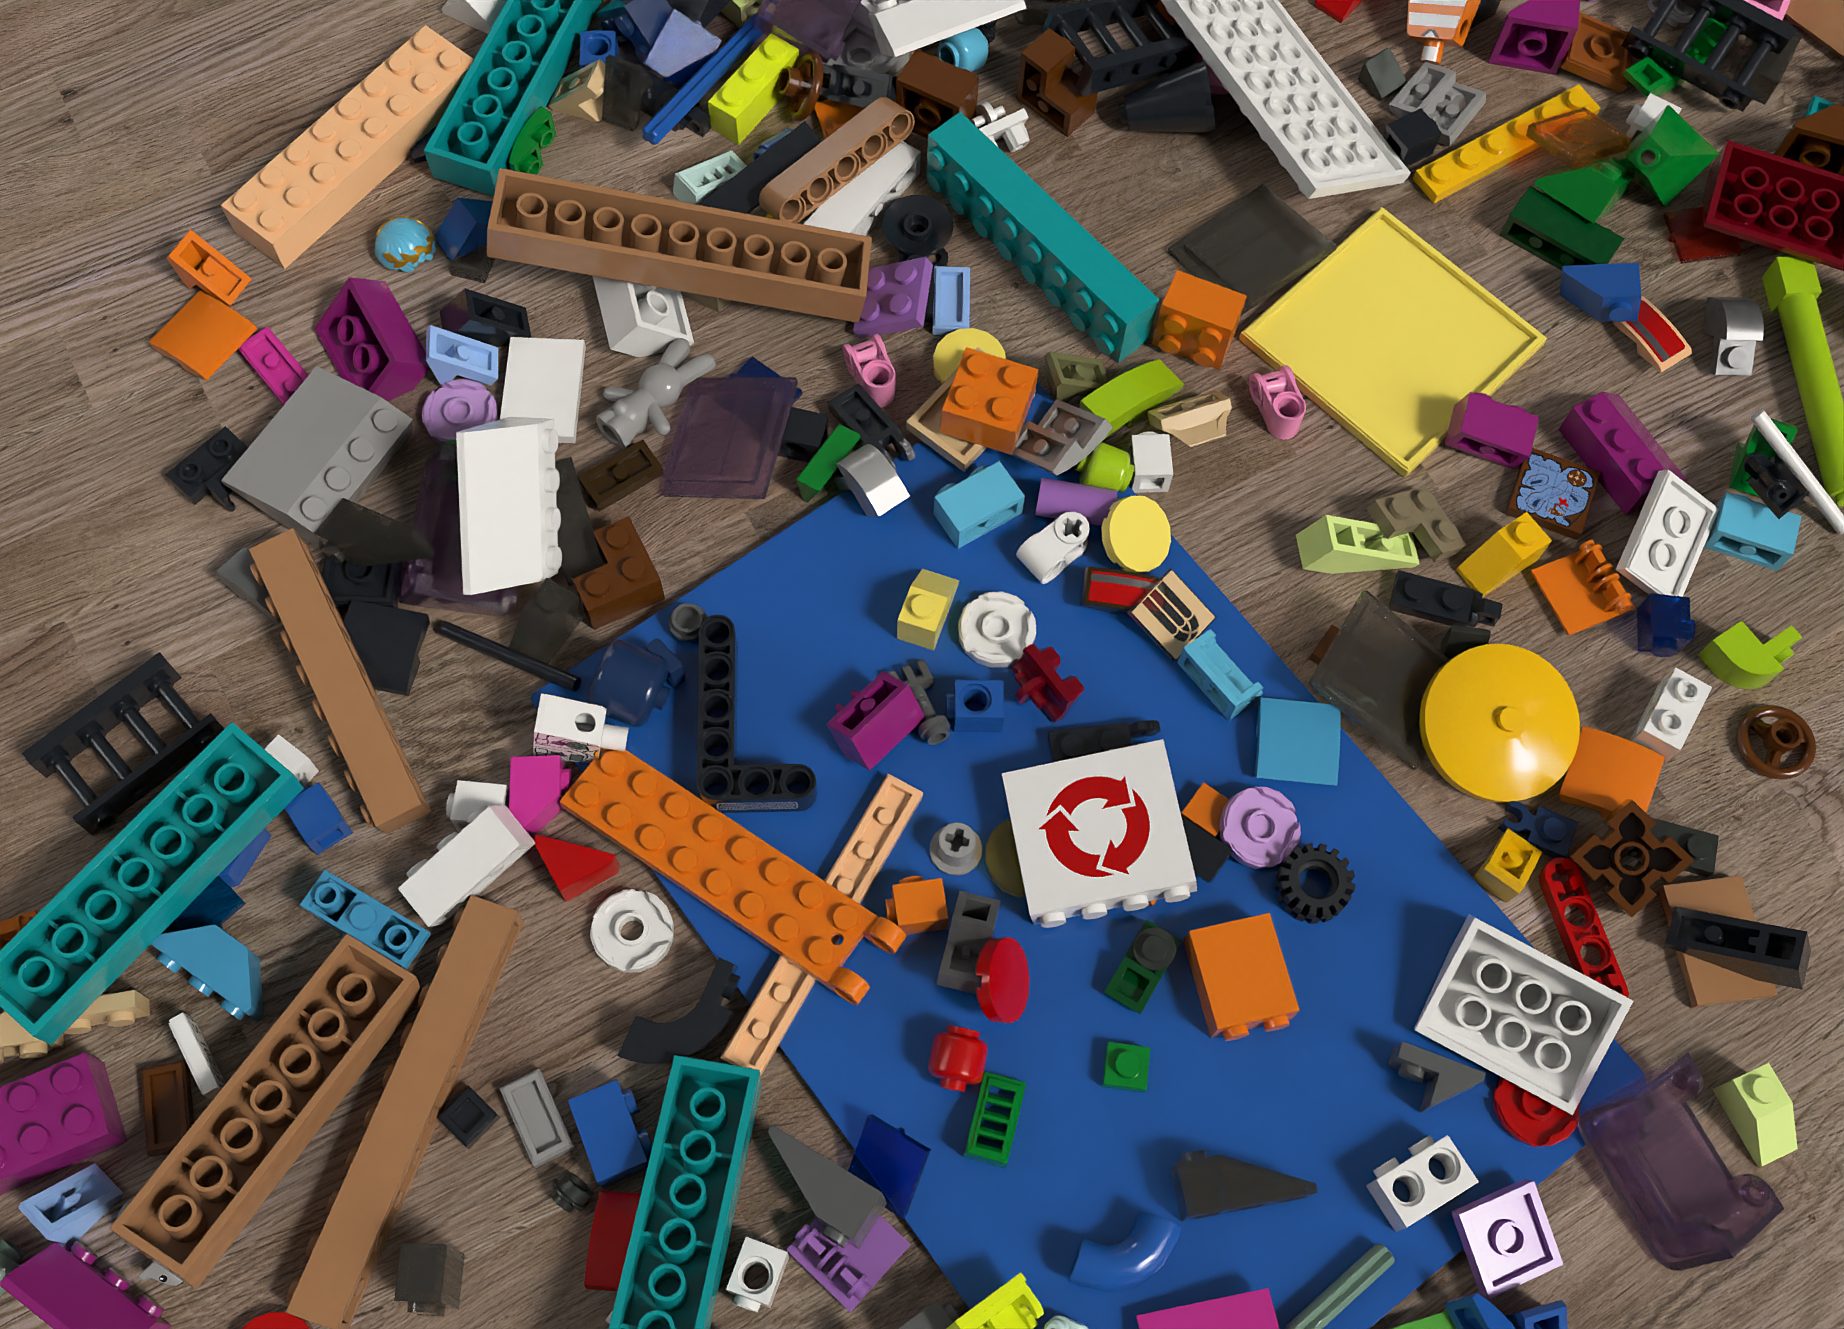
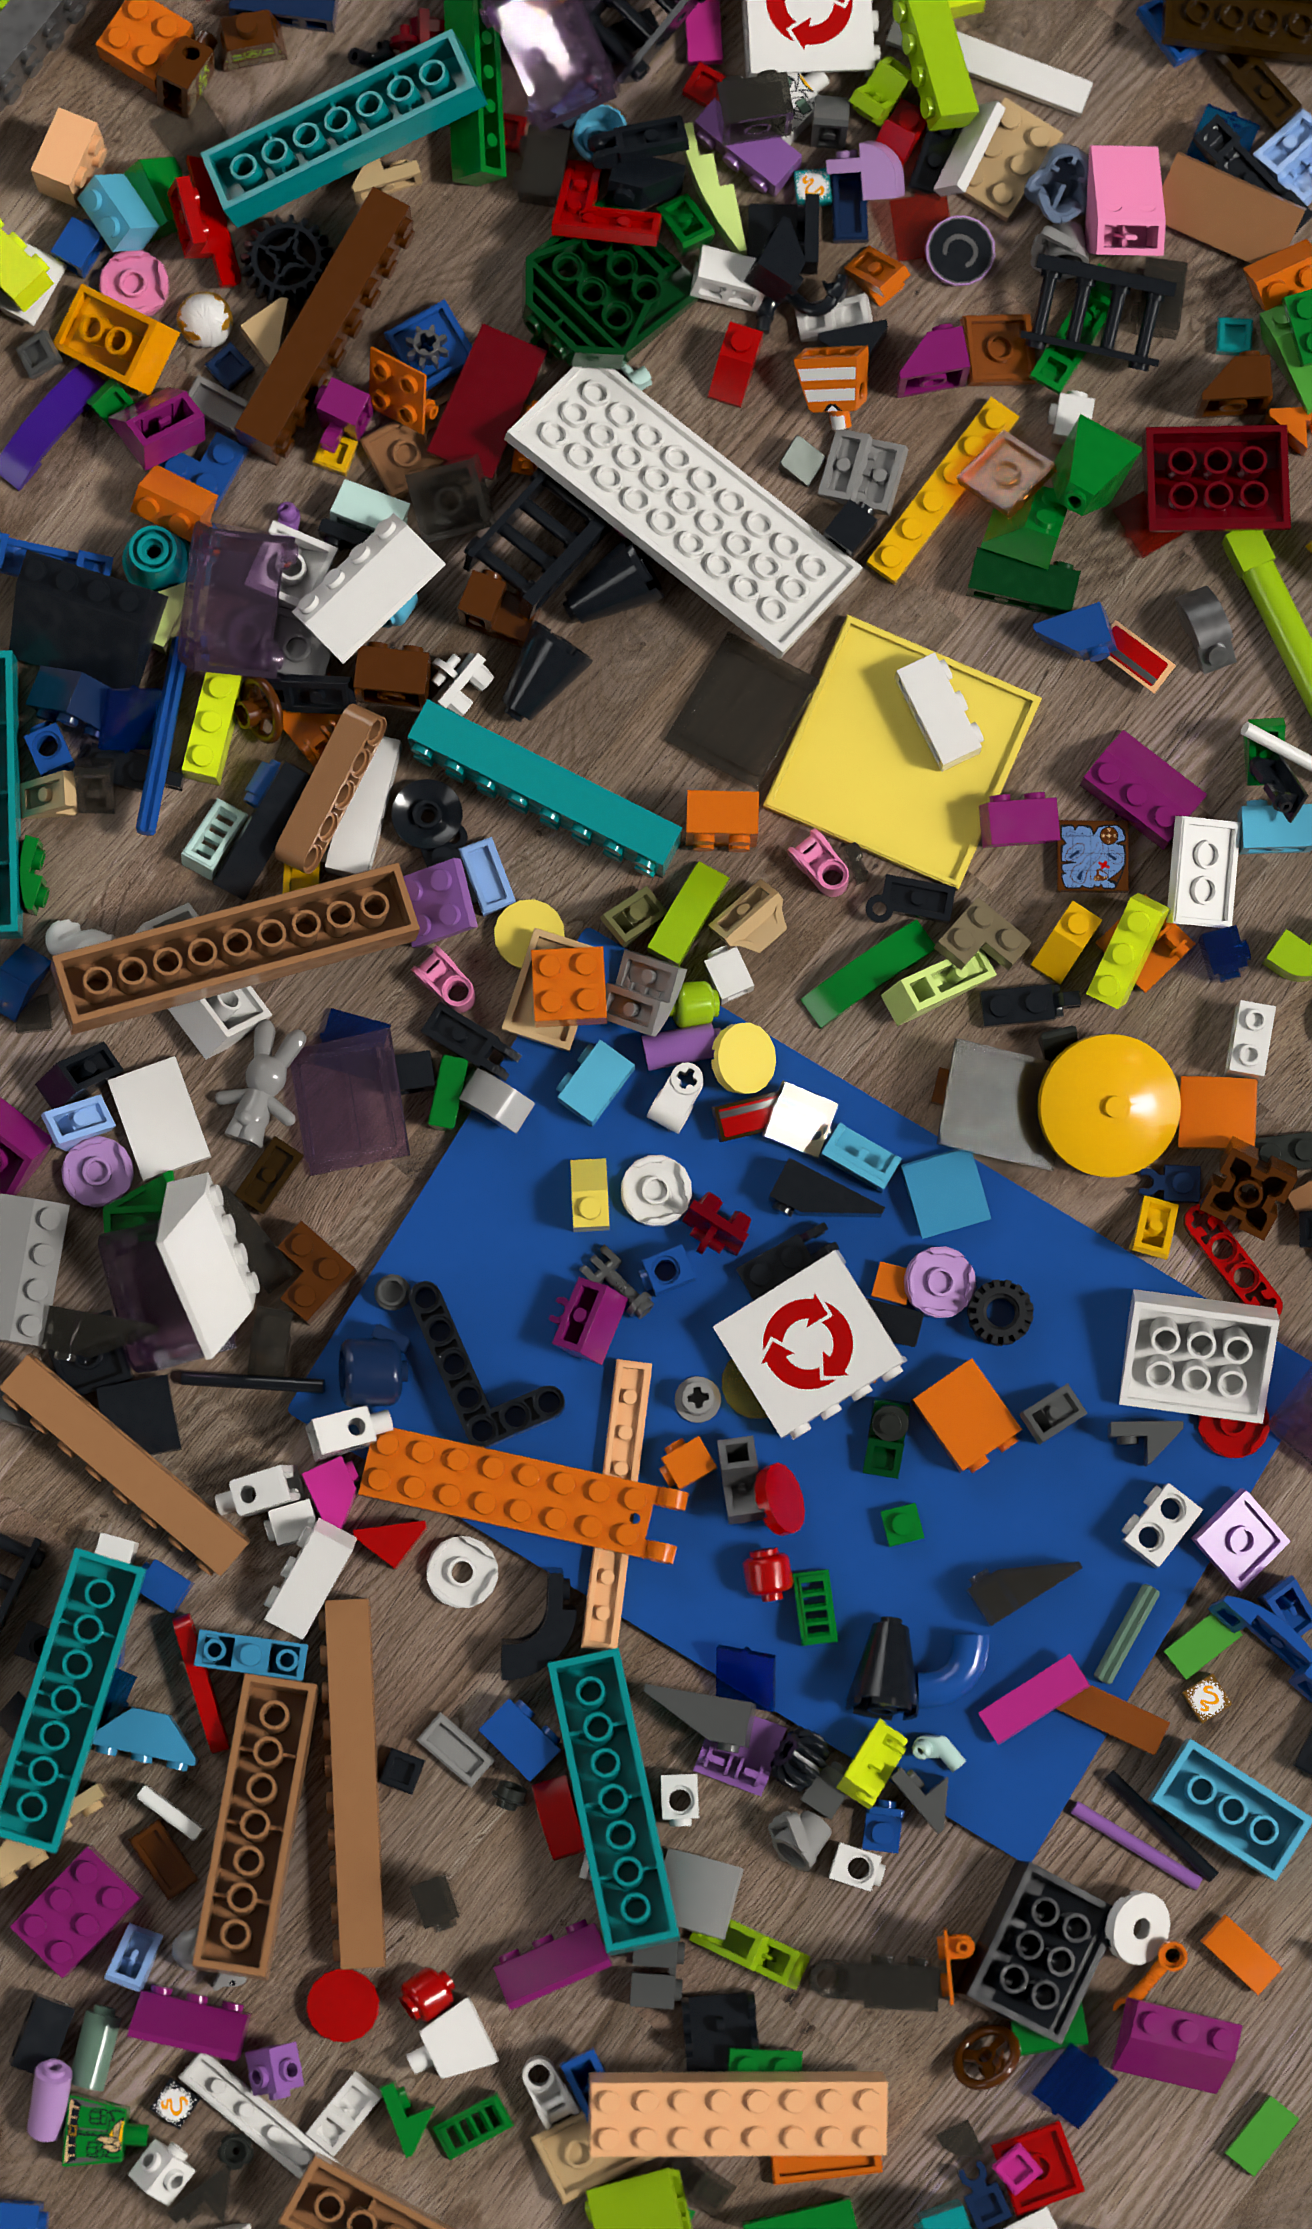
camera: 20 degrees left, 15 degrees up
(301, 935) = (201, 1685): none -> red beam
(463, 757) = (273, 1489): none -> white torso
(911, 1284) = (800, 1759): none -> black gear
(1046, 1226) = (885, 1674): none -> black cone
(1078, 146) = (542, 672): none -> black cone
(1162, 692) = (813, 1194): none -> black slope
(1285, 511) = (868, 973): none -> green slope
(1312, 422) = (854, 860): none -> clear smoke tile
(1335, 1010) = (1053, 1414): none -> dark grey slope
(1359, 464) = (913, 899): none -> black hinge
(1444, 308) = (939, 711): none -> white brick
(1570, 578) = (1128, 950): none -> neon yellow brick

